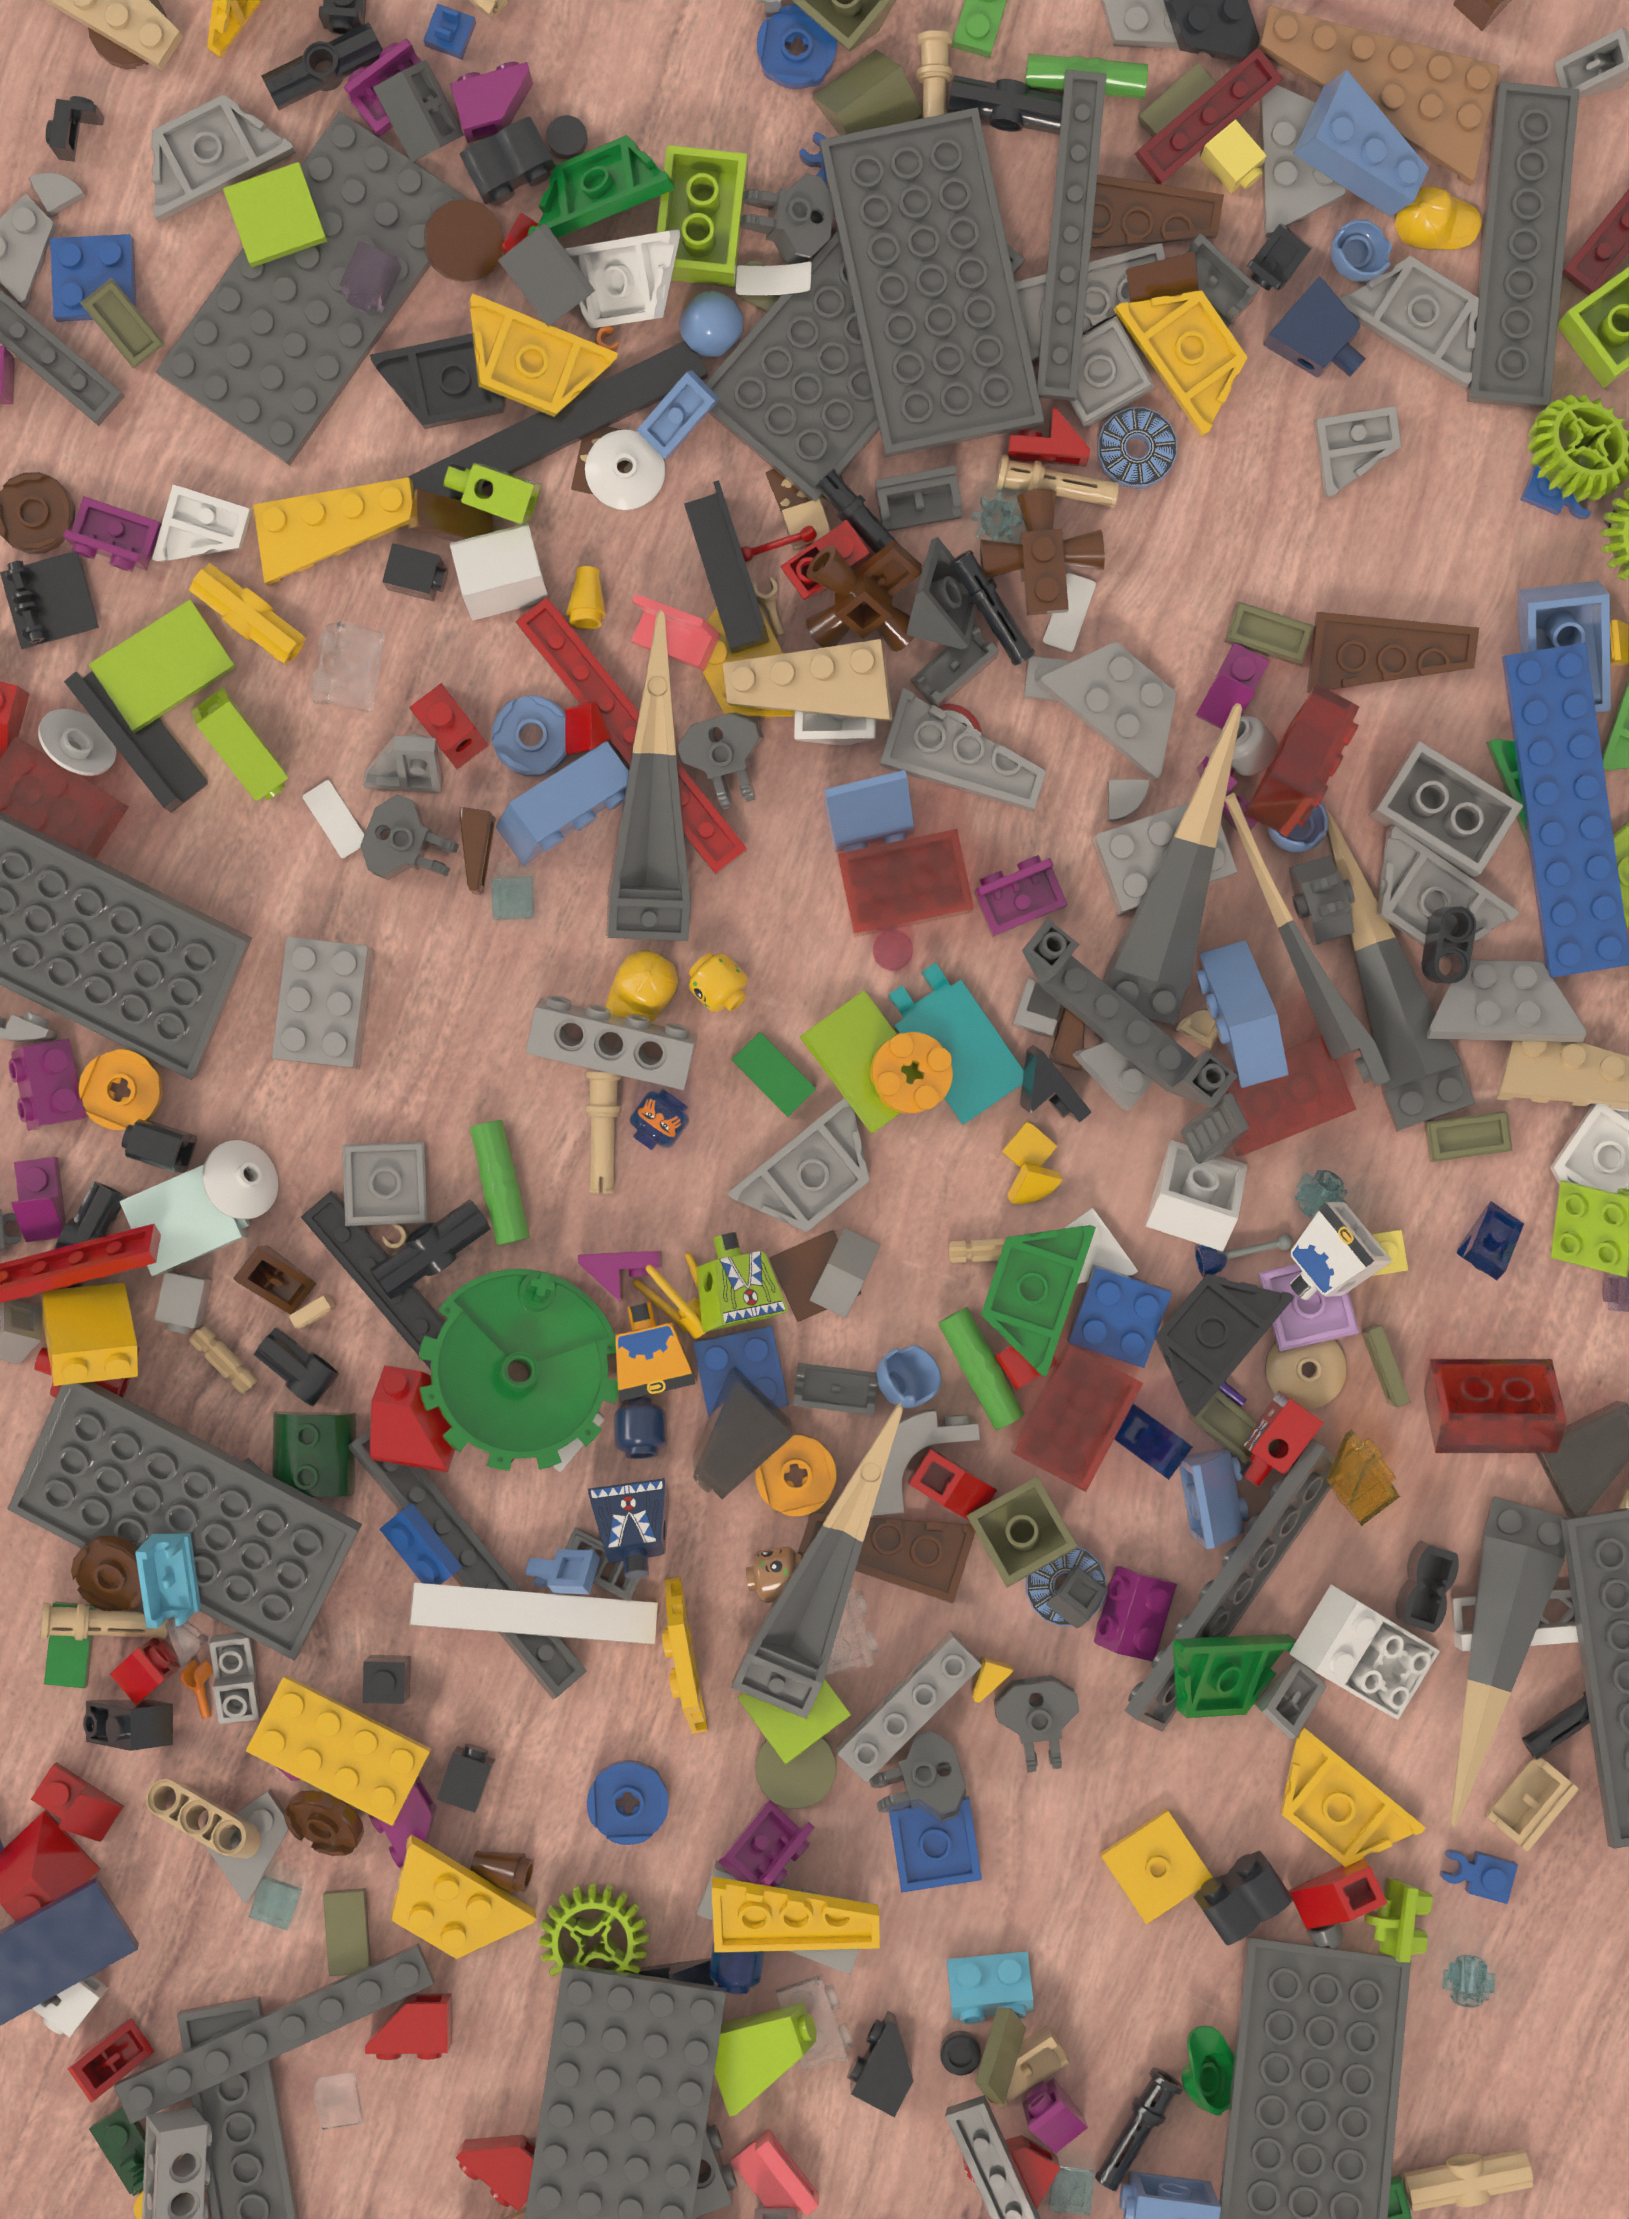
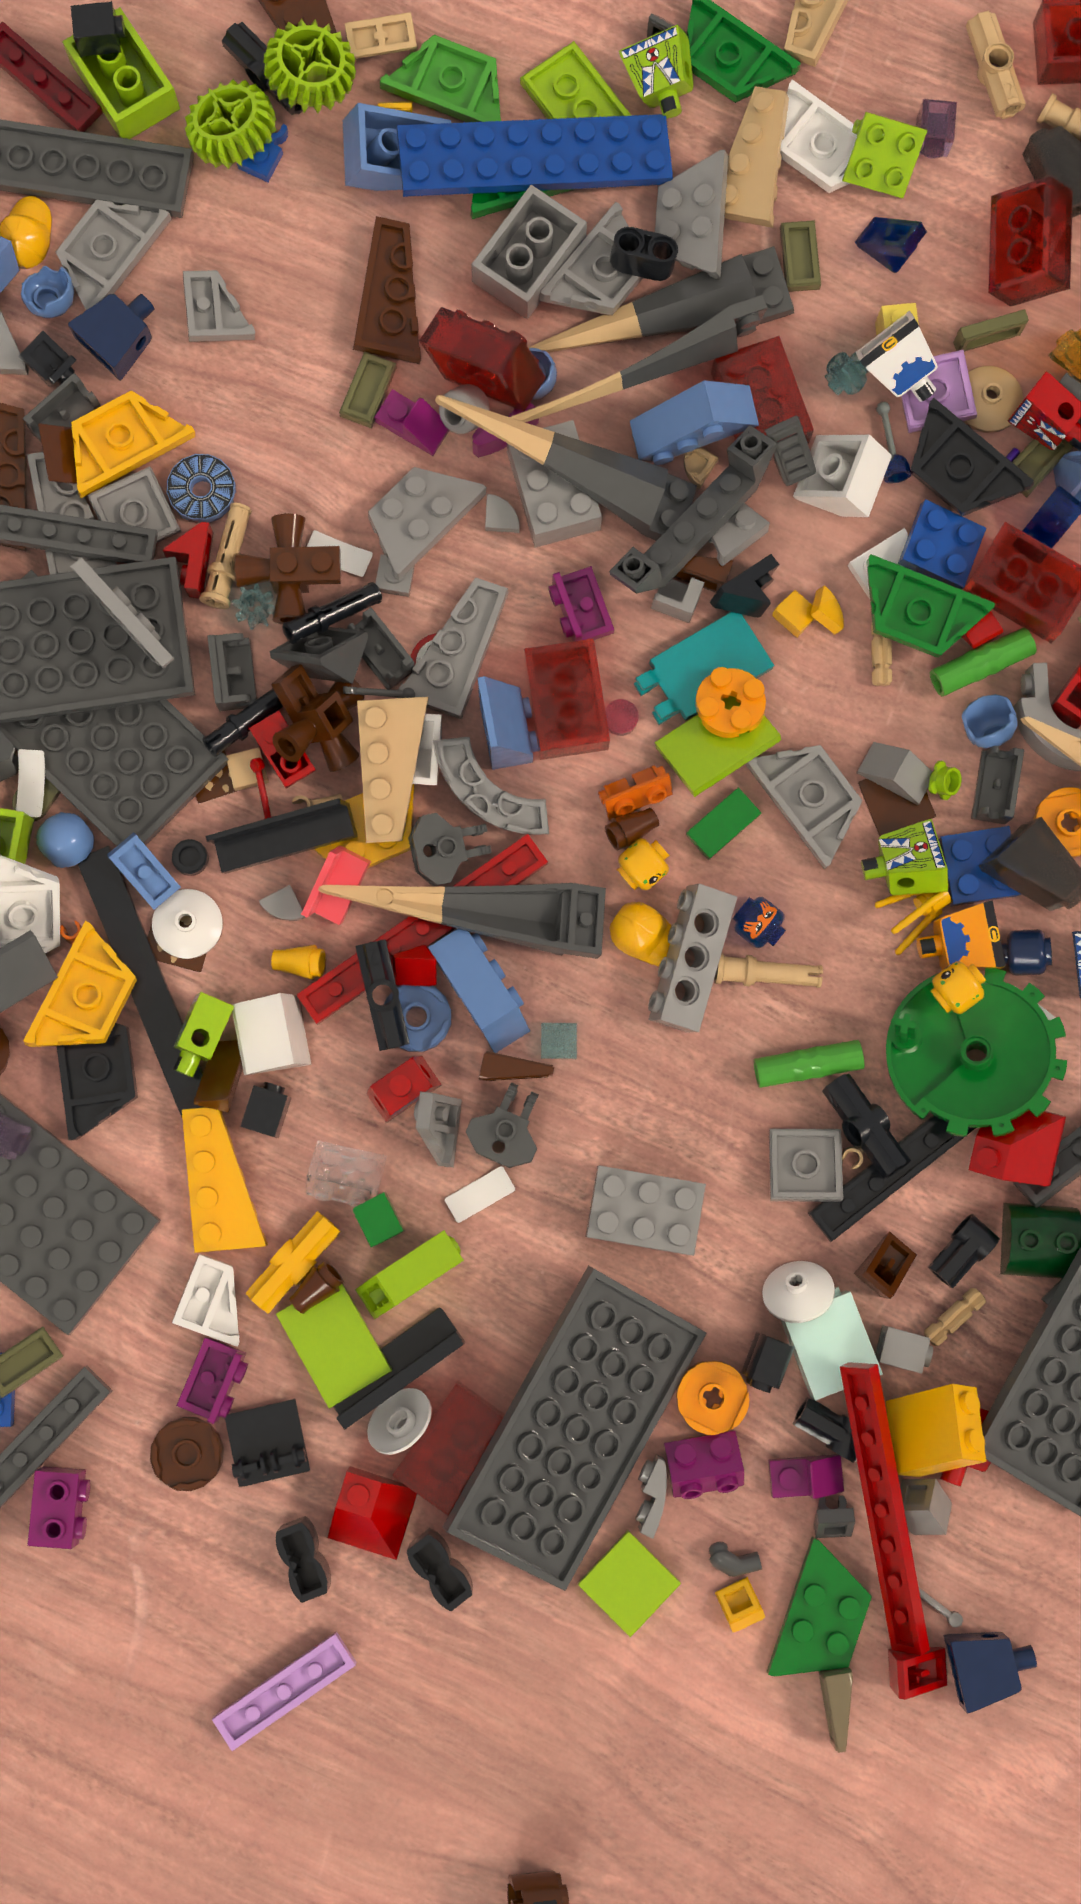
camera: 90 degrees left, 5 degrees down
(220, 642) = (317, 1286): none -> reddish brown cone
(298, 706) = (378, 1219): none -> green panel
(312, 1311) = (916, 1233): tan tile -> none
(524, 698) = (386, 1018): none -> black piece
(589, 1345) = (958, 987): none -> yellow head
(608, 1267) = (884, 972): magenta slope -> none
(651, 576) = (283, 905): none -> light grey tile
(701, 467) = (190, 857): none -> black tile
(761, 967) = (628, 828): none -> reddish brown cone
(785, 793) = (482, 796): none -> light grey tile
(794, 955) = (650, 786): none -> orange hinge
(837, 1328) = (944, 780): none -> lime plate
(900, 700) = (406, 693): none -> dark grey hinge
(964, 363) = (122, 611): none -> light grey wing
(1322, 899) = (597, 355): dark grey hinge -> none

